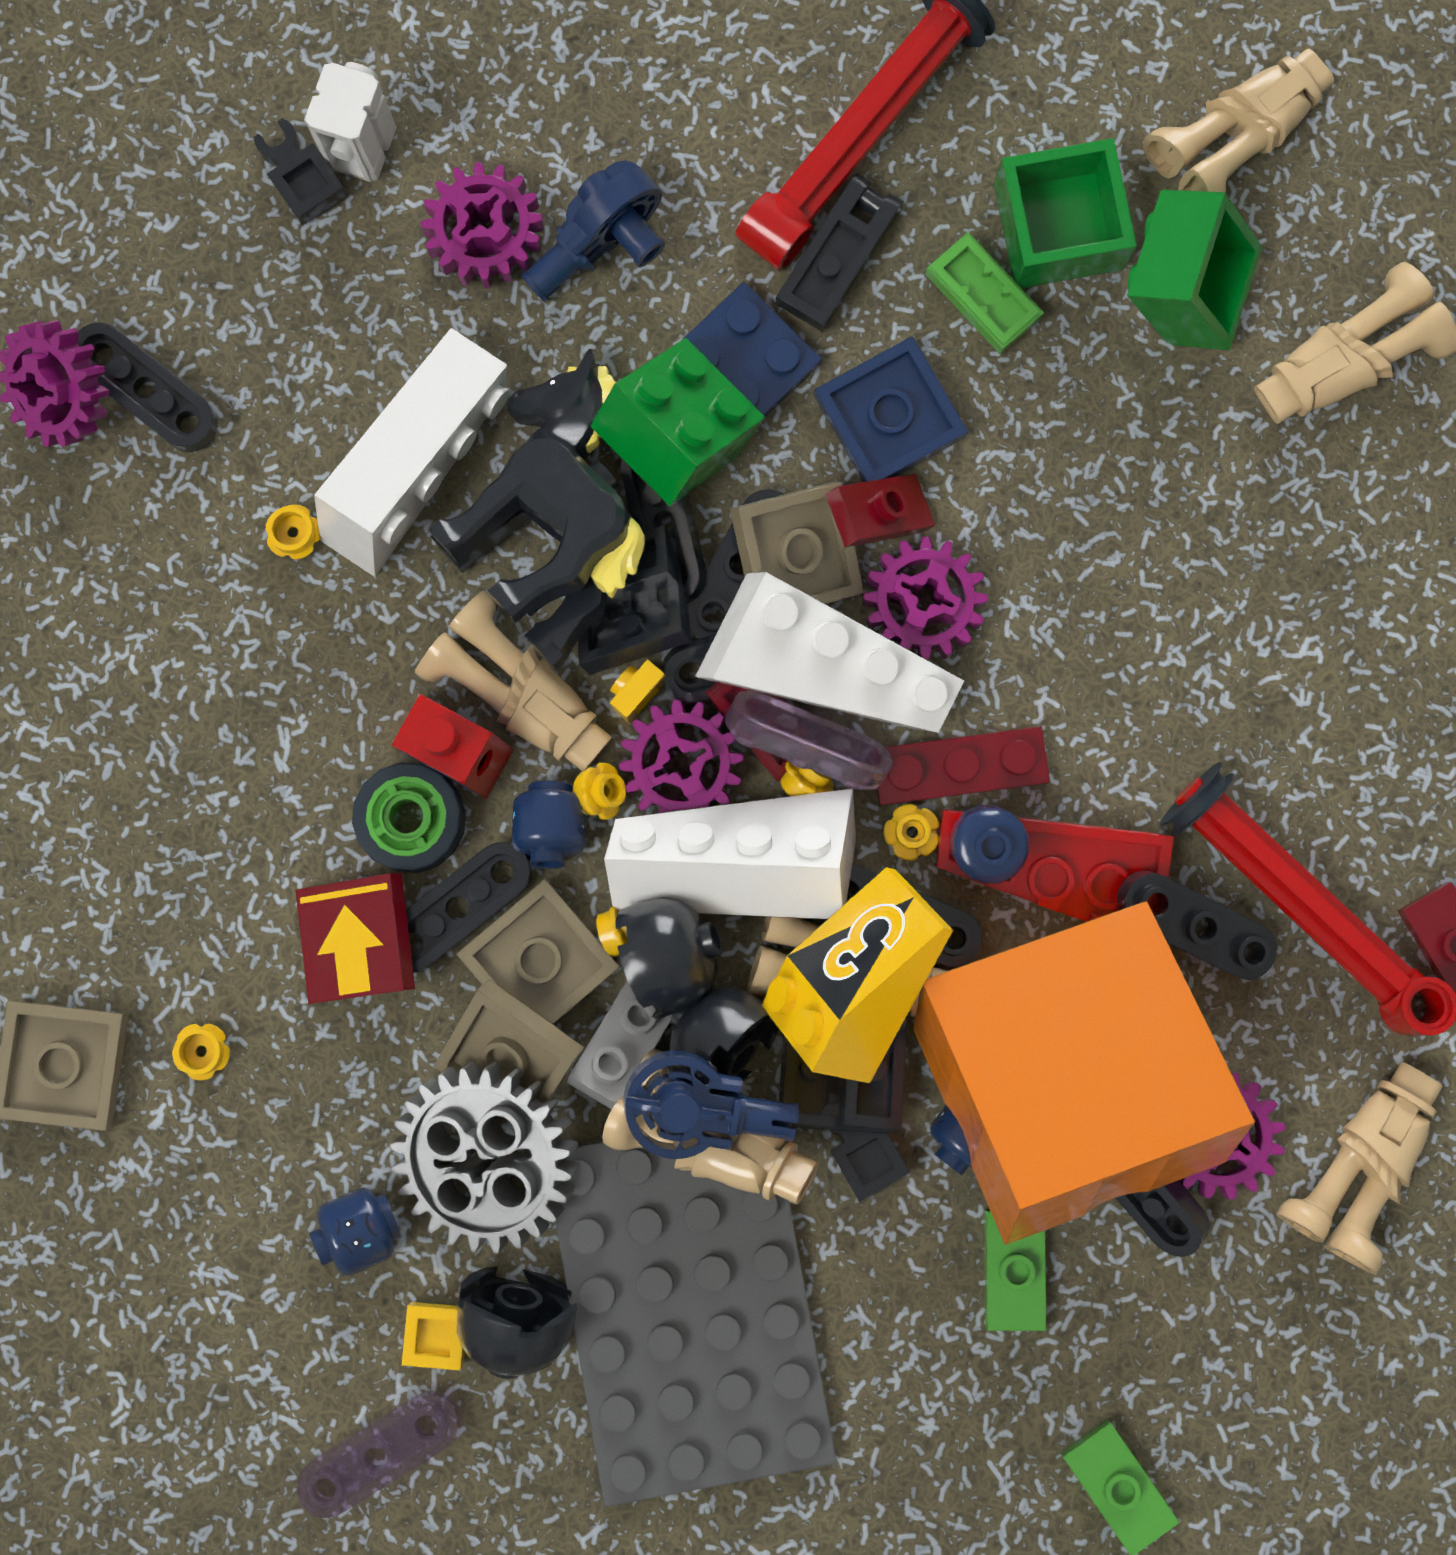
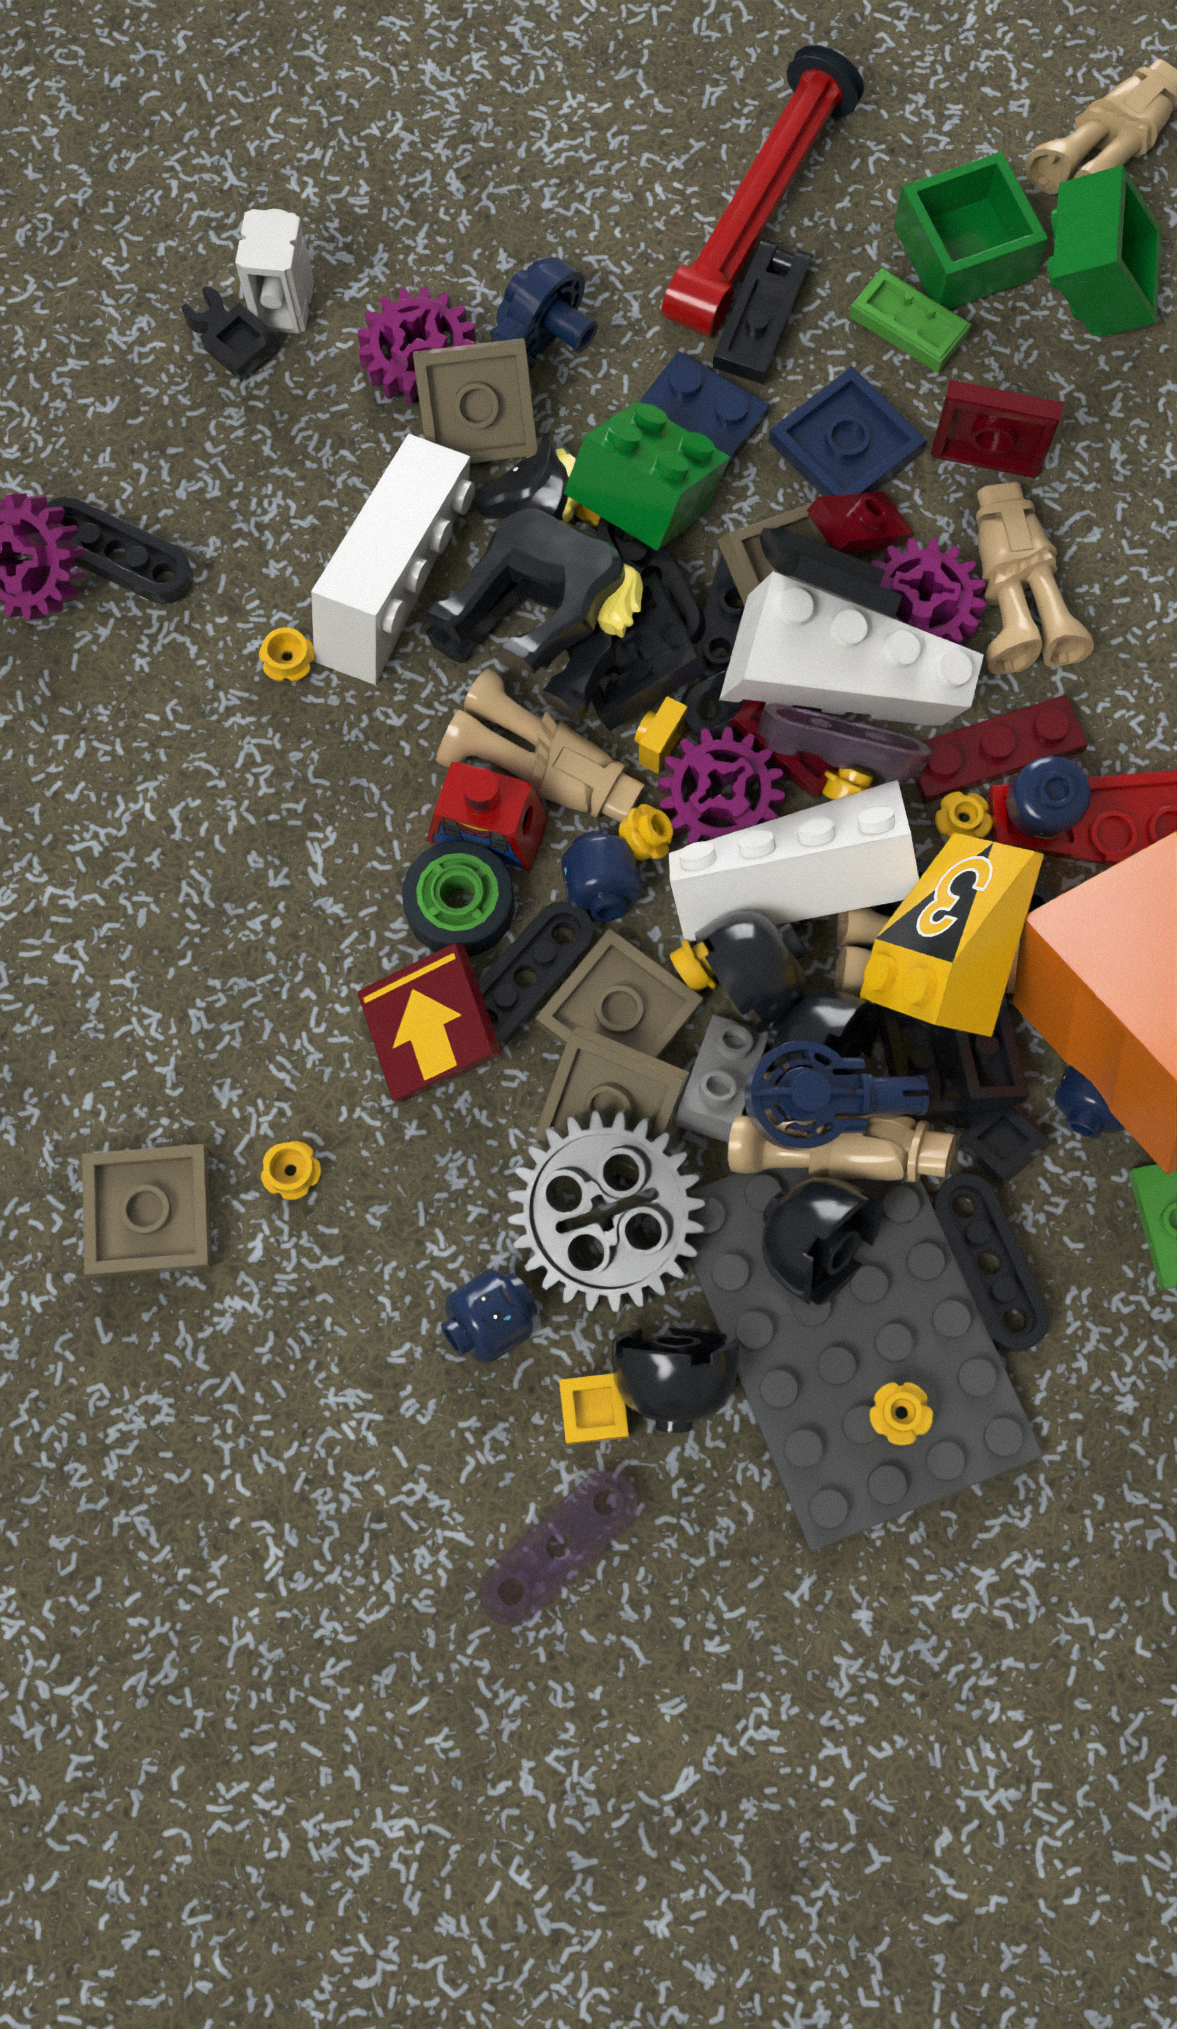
camera: 10 degrees left, 10 degrees down
(526, 304) = (477, 399): none -> dark tan plate
(665, 1230) = (816, 1233): none -> black cylinder
(722, 1393) = (886, 1422): none -> yellow plate
(826, 572) = (828, 570): none -> black slope
(834, 1300) = (990, 1233): none -> black plate
(1027, 572) = (1016, 558): none -> tan piece
(1035, 441) = (995, 429): none -> dark red tile

